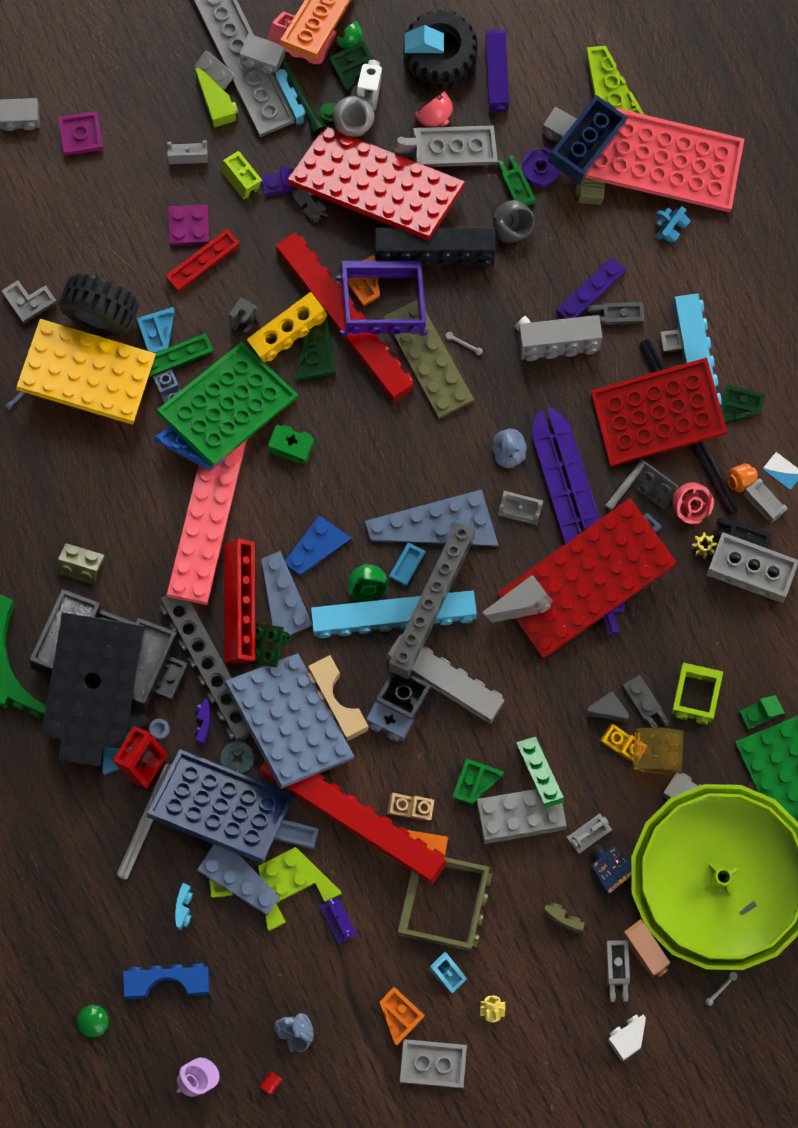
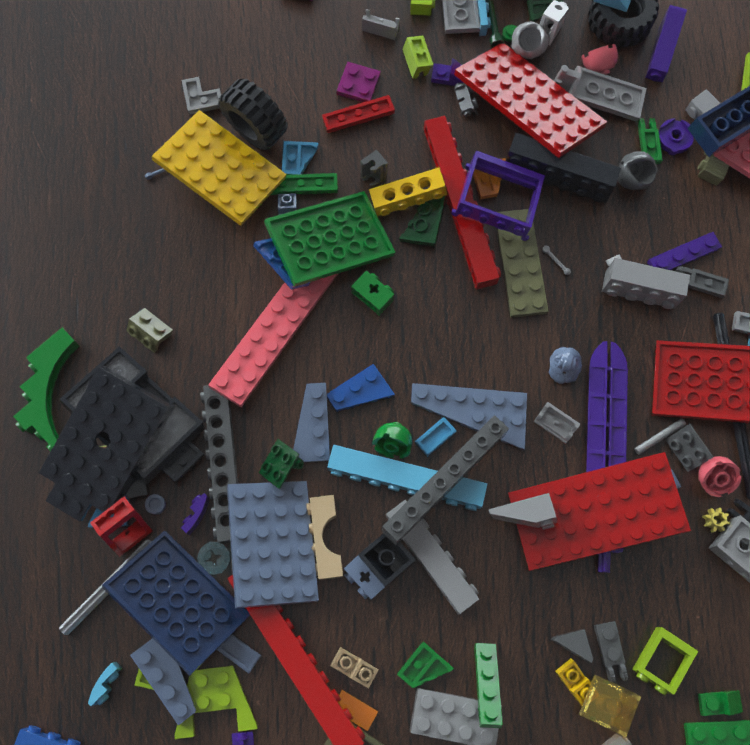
camera: 20 degrees right, 0 degrees up
(239, 602) = (271, 416): red brick -> none

